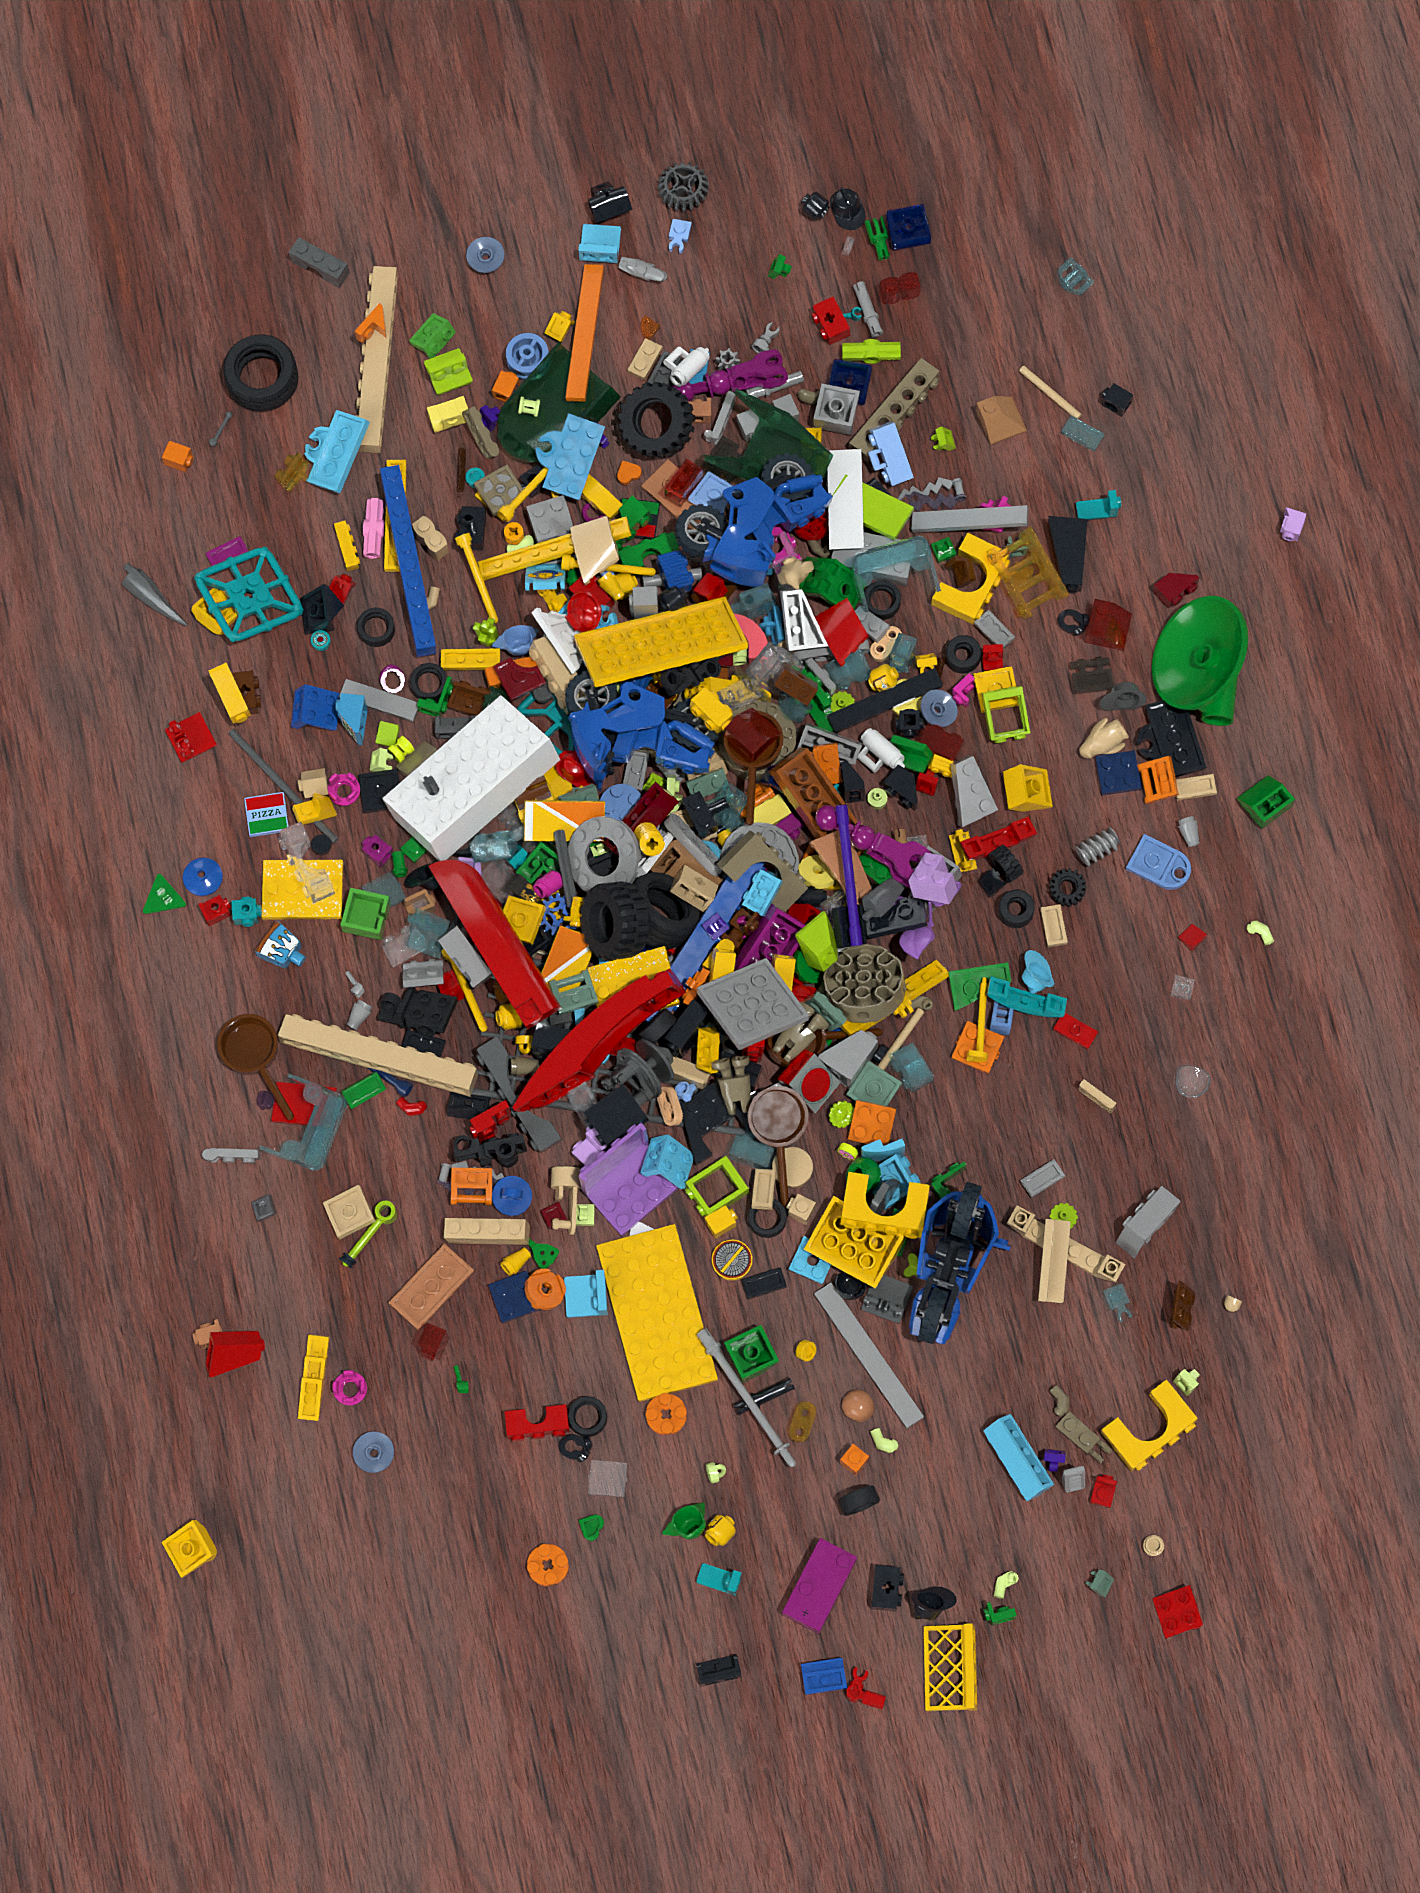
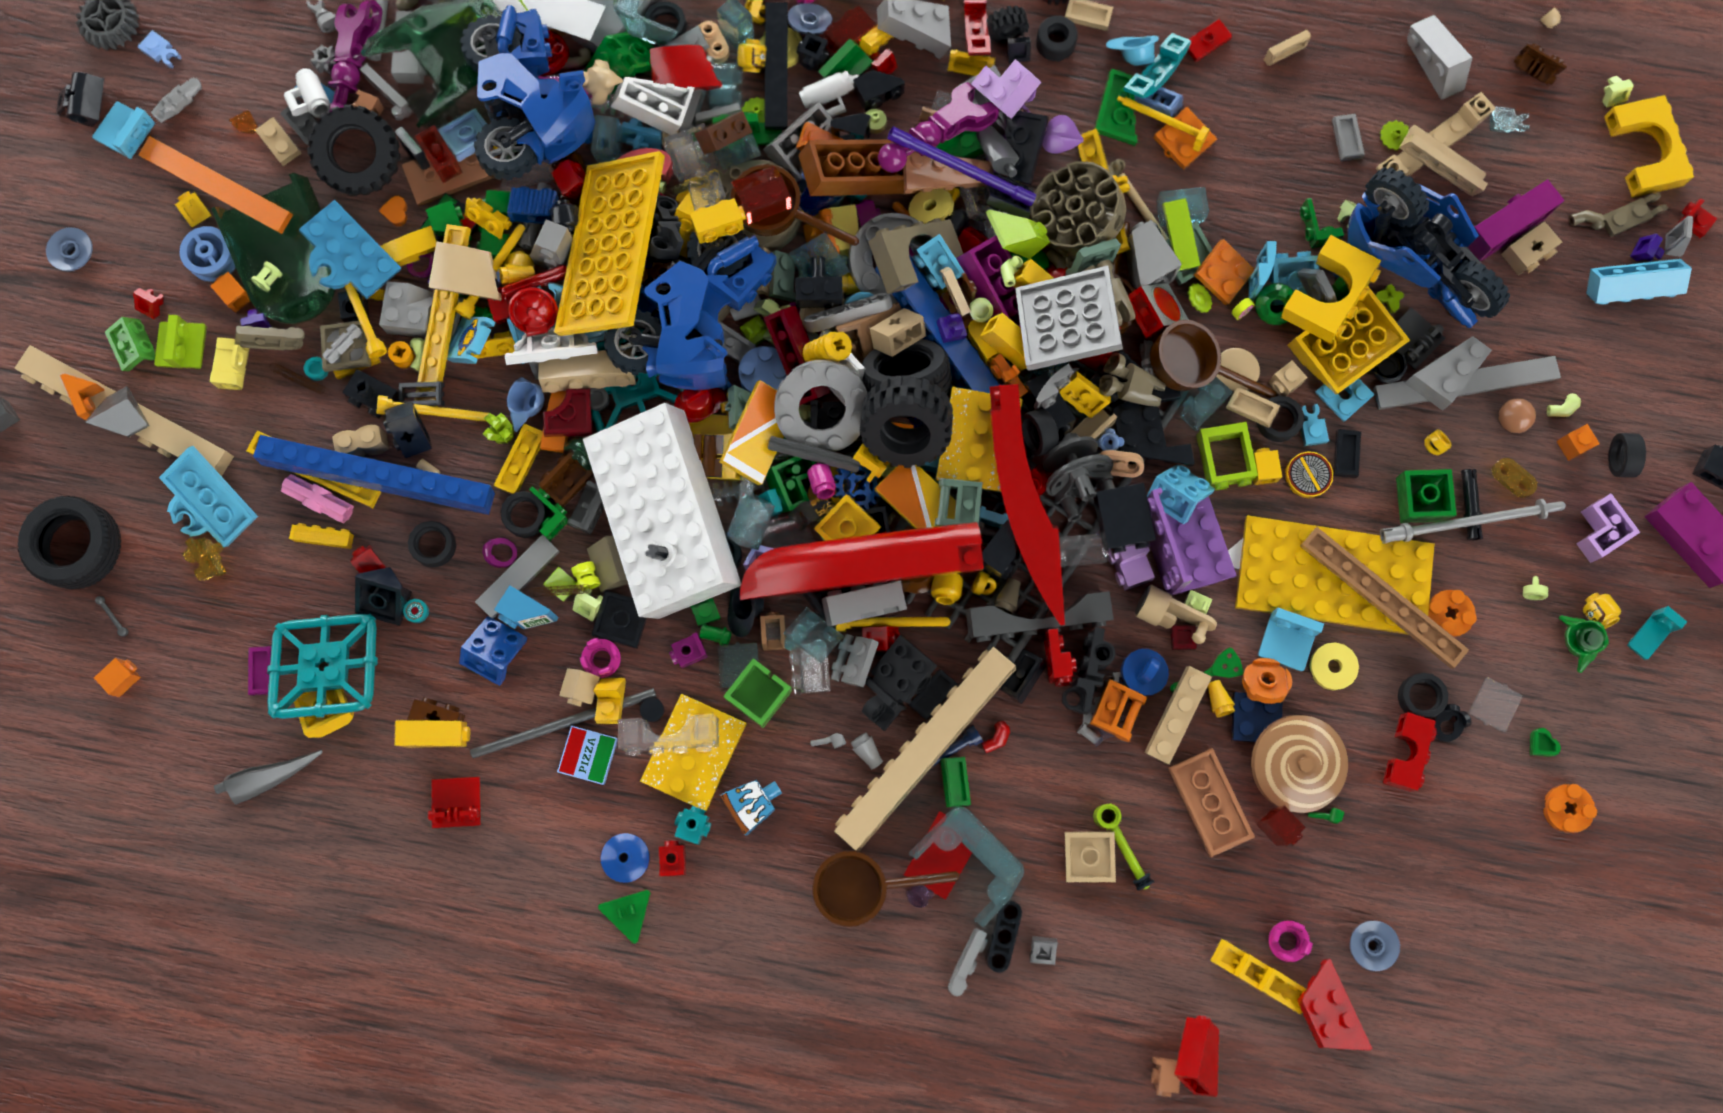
camera: 70 degrees left, 5 degrees up
(270, 1178) = (1006, 949): none -> black beam
(308, 1439) = (1331, 1012): none -> wing
(371, 357) = (119, 414): none -> slope
(379, 730) = (557, 590): none -> reddish brown piece
(454, 566) = (408, 429): none -> black brick
(469, 330) = (147, 303): none -> red tile
(490, 1341) = (1299, 763): none -> medium nougat dish
(492, 575) = (438, 394): none -> black tile
(498, 487) = (342, 343): none -> light grey axle
(578, 1328) = (1346, 659): none -> light yellow tile
(610, 601) = (542, 279): none -> red axle
(646, 550) = (481, 214): none -> yellow hinge
(650, 1351) = (1384, 598): none -> medium nougat plate
(686, 453) = (412, 148): none -> black tile
(688, 1016) = (1049, 391): none -> light grey slope
(738, 941) = (981, 309): none -> yellowish green tile
(741, 913) = (955, 291): none -> tan tile
(772, 1249) = (1313, 430): none -> medium azure plate
(782, 948) = (1008, 270): none -> yellowish green arm
(791, 1511) = (1610, 526): none -> lavender brick
(864, 1332) = (1450, 373): none -> light grey wedge
(882, 1073) = (1181, 233): none -> lime tile
(1020, 1332) = (1515, 219): none -> magenta brick
(1020, 1363) = (1541, 240): none -> tan brick

